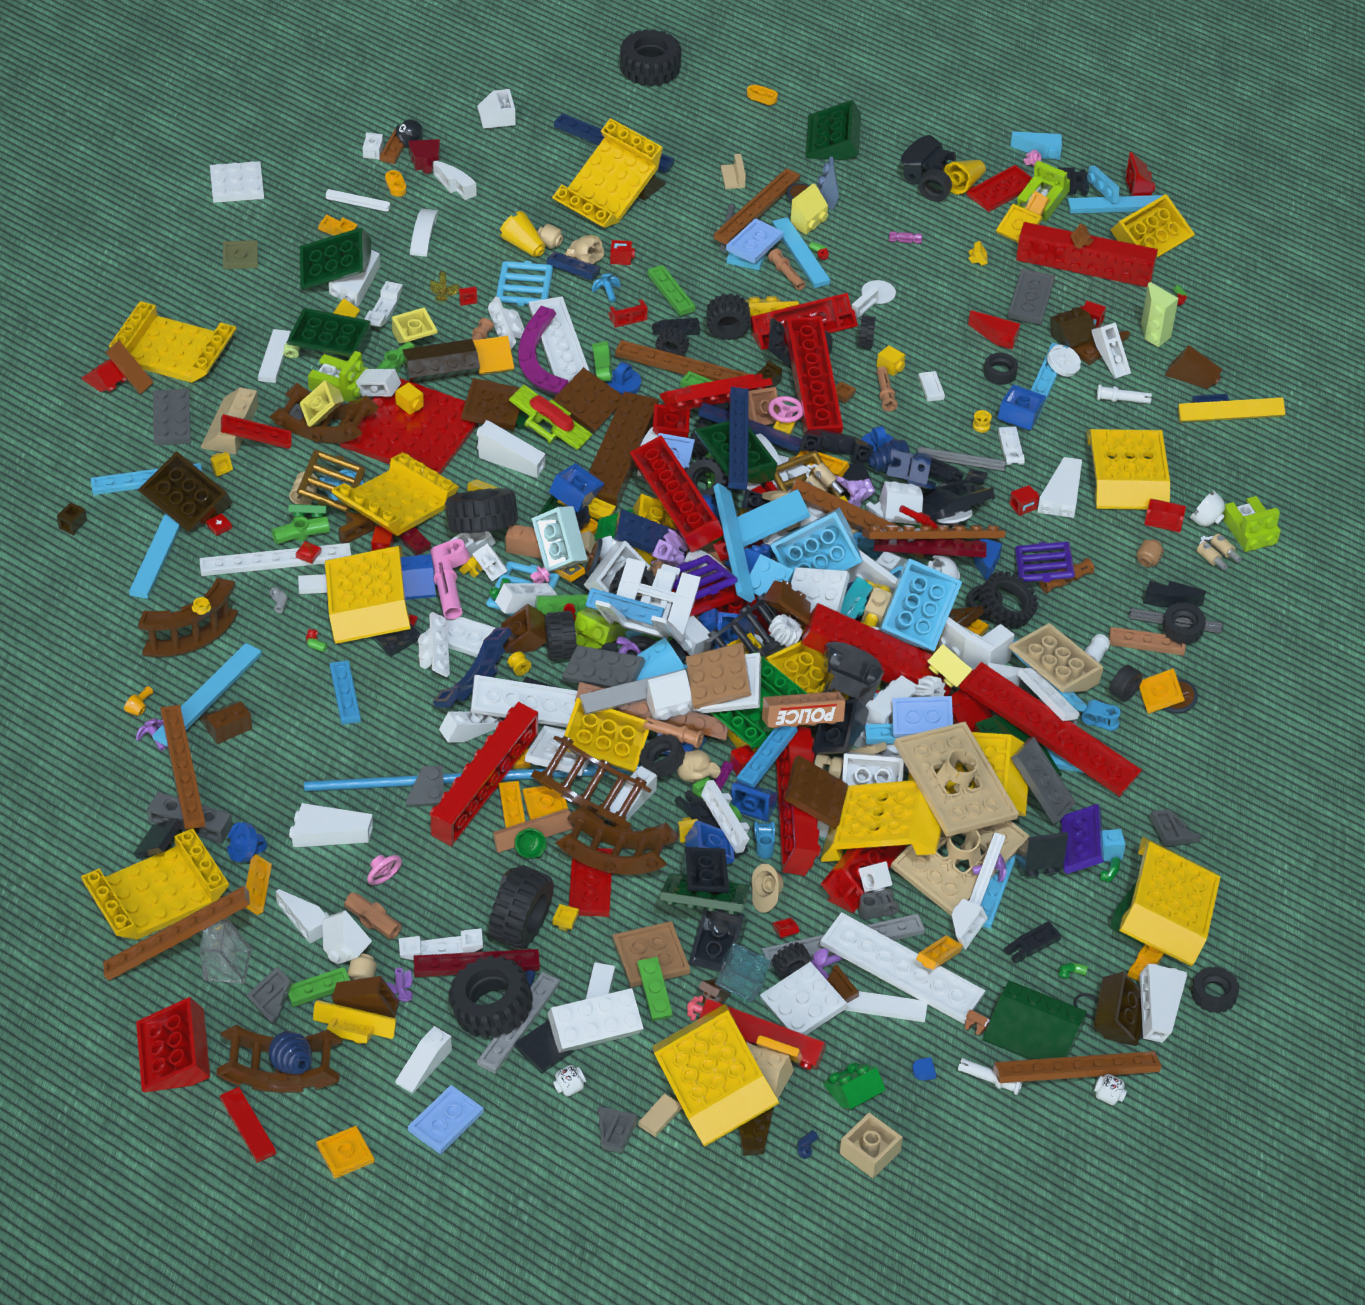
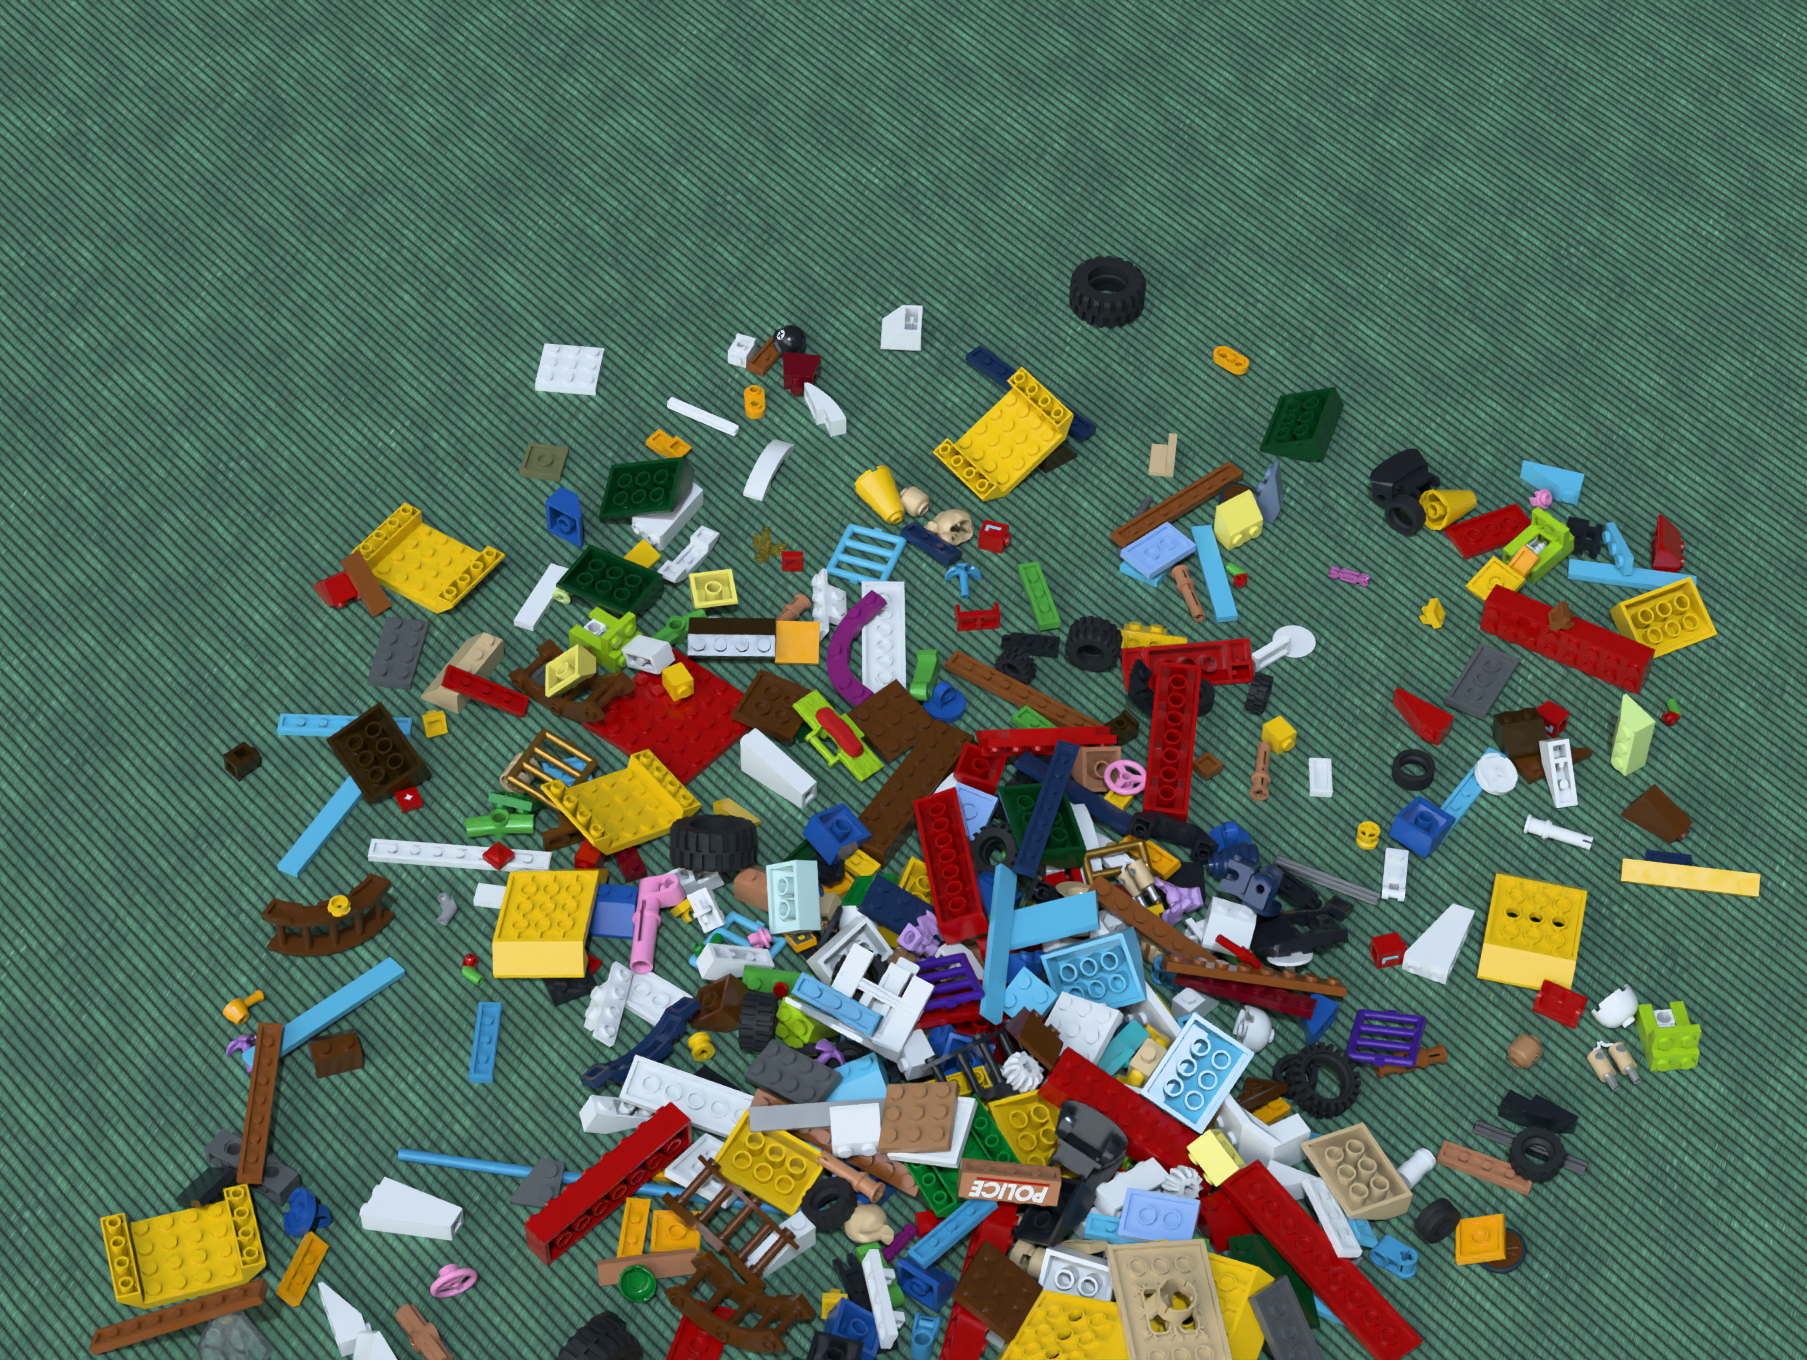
camera: 15 degrees right, 0 degrees up
(275, 291) = (565, 516): none -> blue slope

